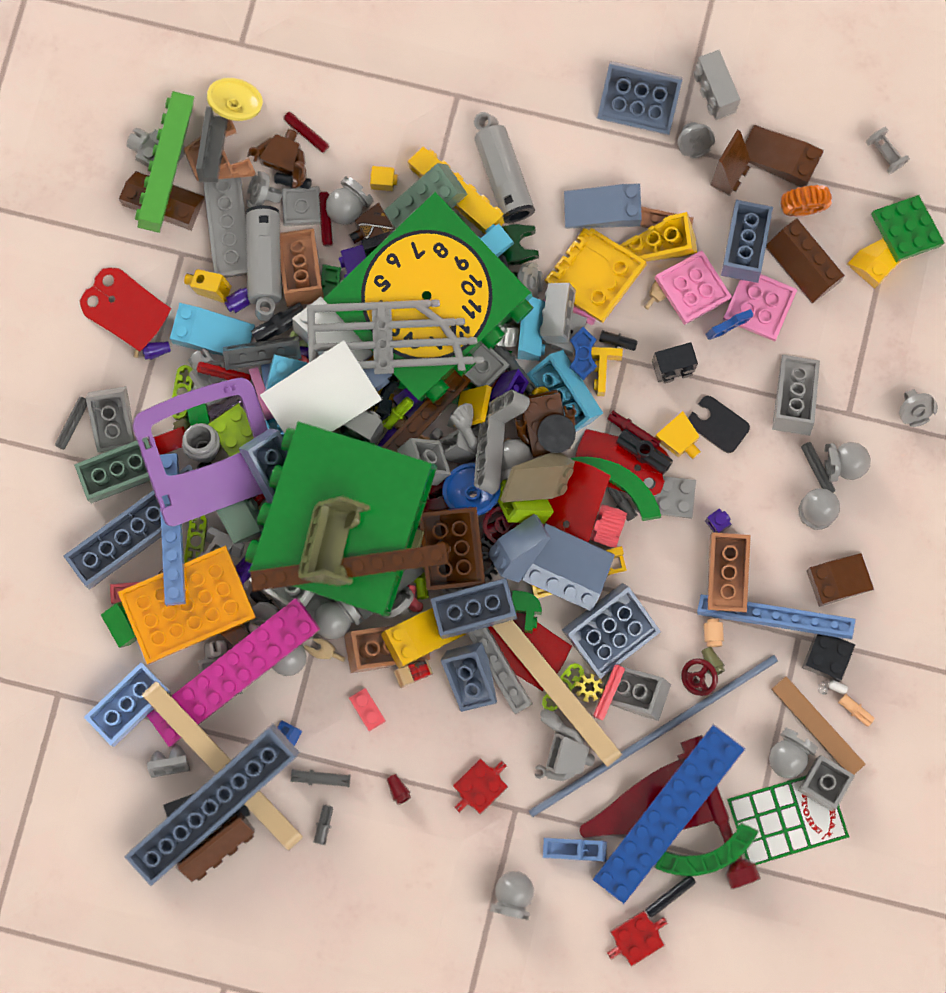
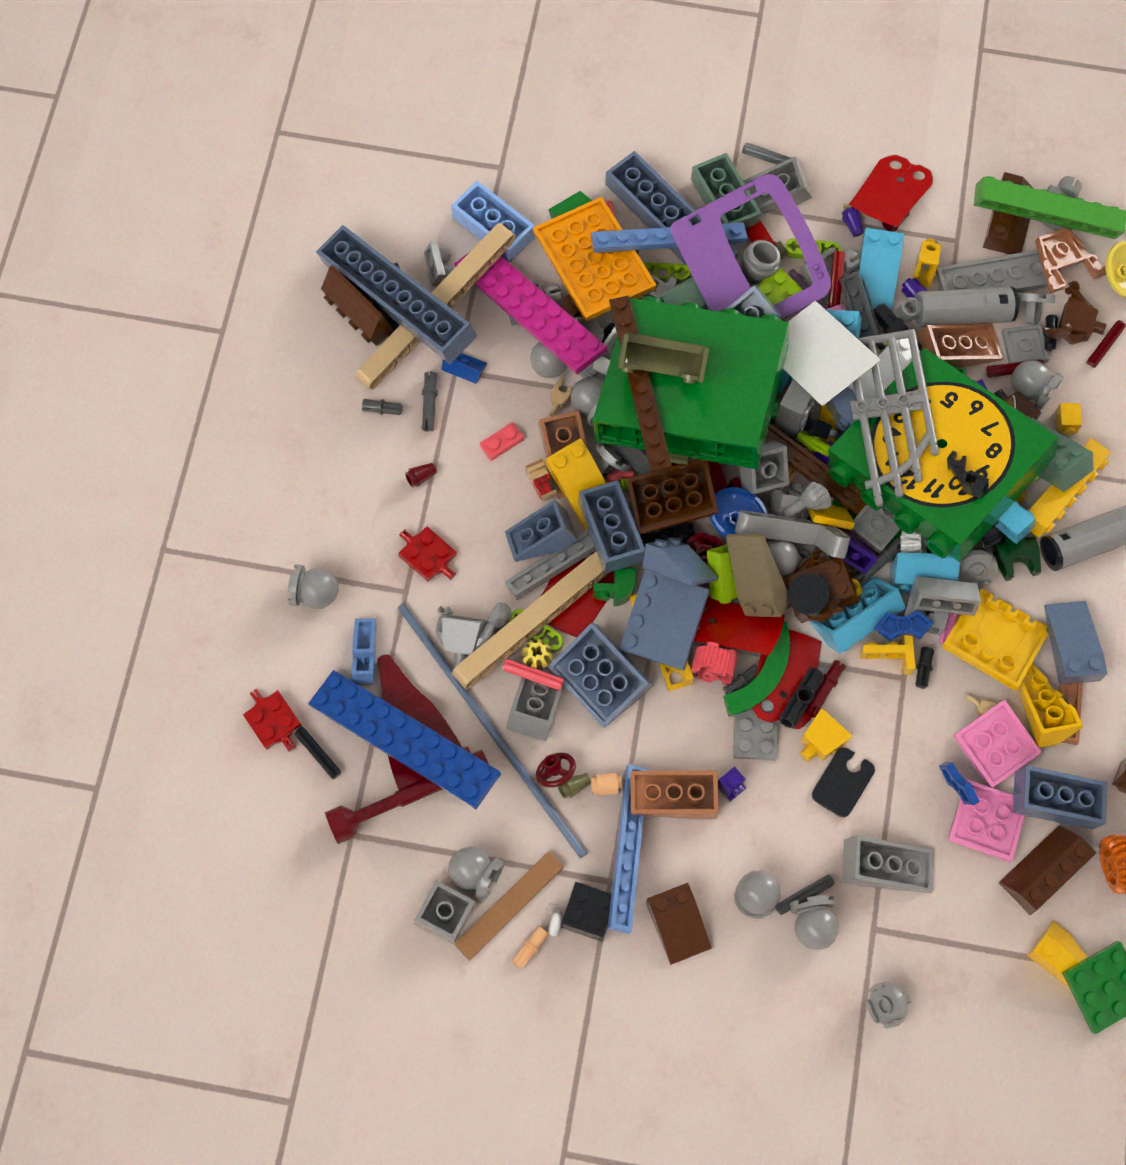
camera: 85 degrees right, 10 degrees down
(198, 414) = (791, 260): green brick -> none
(211, 147) = (1073, 249): dark grey fence -> none
(458, 284) = (958, 469): none -> black piece
(674, 362) = (906, 725): black brick -> none
(712, 861) = (354, 790): green tile -> none
(785, 821) = (400, 870): white sticker -> none

